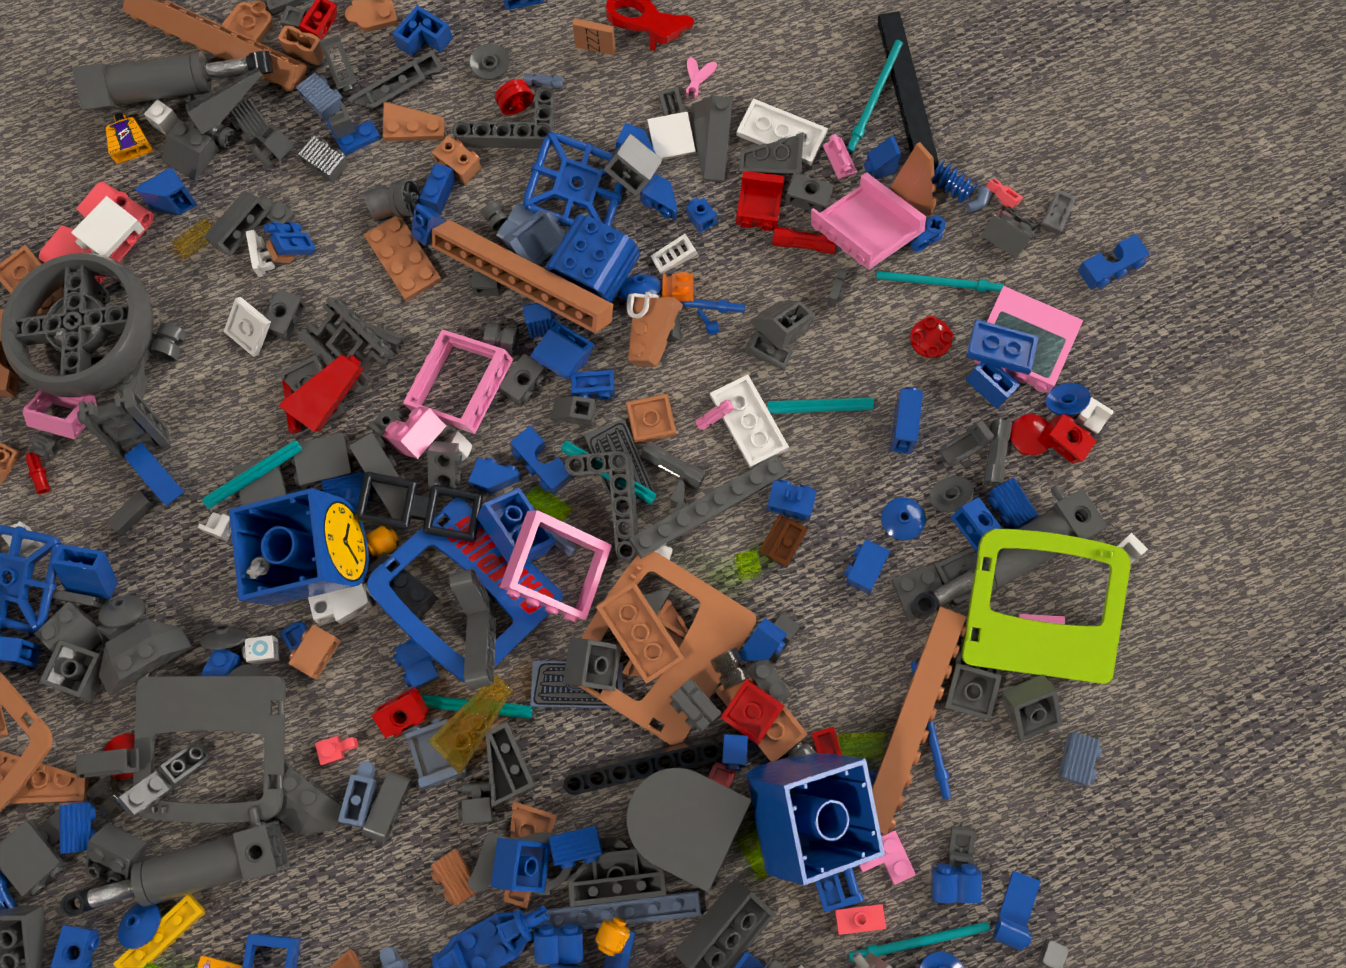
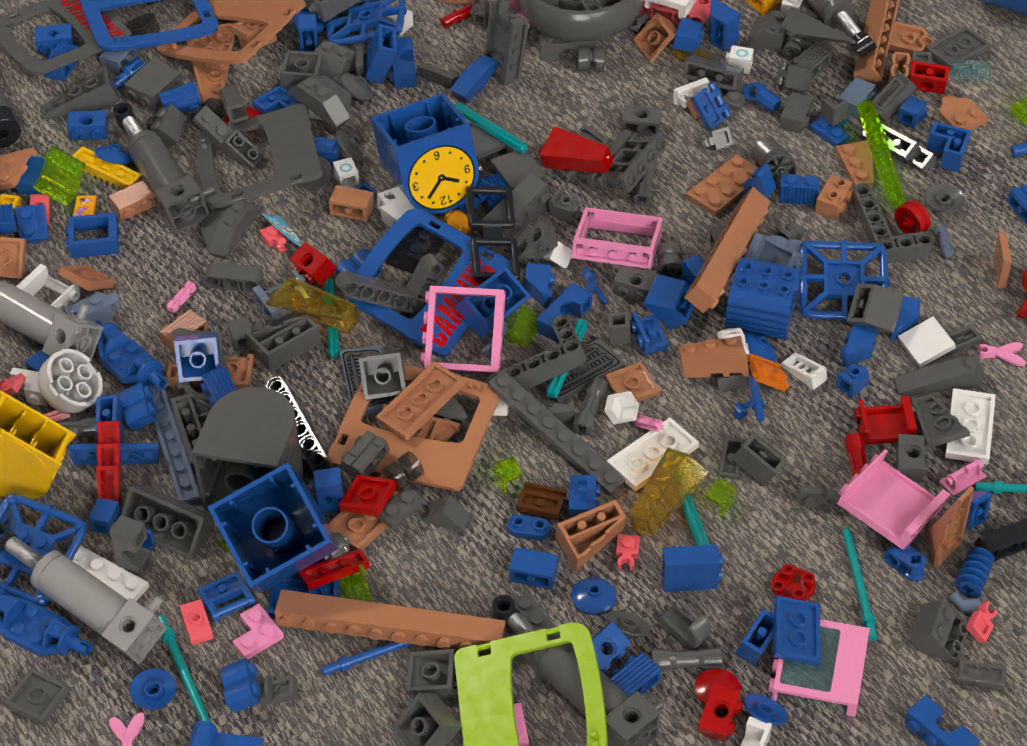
camera: 75 degrees right, 25 degrees down
(107, 711) = (273, 99): none -> blue plate
(118, 550) = (403, 64): none -> blue arch
(158, 265) = (655, 36): none -> nougat slope
(169, 232) = (689, 35): none -> blue brick
(222, 191) = (740, 57): none -> white brick
(226, 911) = (132, 200): none -> nougat brick
(247, 326) = (620, 99): white tile -> none
(258, 567) = (399, 122): light grey axle -> none
(290, 184) = (763, 97): none -> blue piece
(324, 737) = (283, 227): none -> medium azure sticker
(337, 244) = (719, 139): none -> plate
(359, 51) = (912, 111): none -> blue brick
(359, 796) = (238, 252): sand blue brick -> none
(397, 872) = (181, 296): none -> bright pink axle
(408, 97) = (881, 154): none -> clear neon green beam
(415, 434) = (557, 214): bright pink brick -> none
(516, 423) = (590, 277): none -> blue piece
(612, 936) = (151, 434): light orange head -> none
(688, 435) = (621, 407): none -> white panel
(763, 642) = (436, 490): blue slope -> none
(803, 416) = (665, 490): none -> clear yellow wedge
(810, 560) = (528, 527): none -> blue plate
(818, 370) = (722, 494): none -> clear neon green panel
(839, 503) = (589, 532): none -> nougat wedge
(855, 474) = (627, 550): none -> coral plate

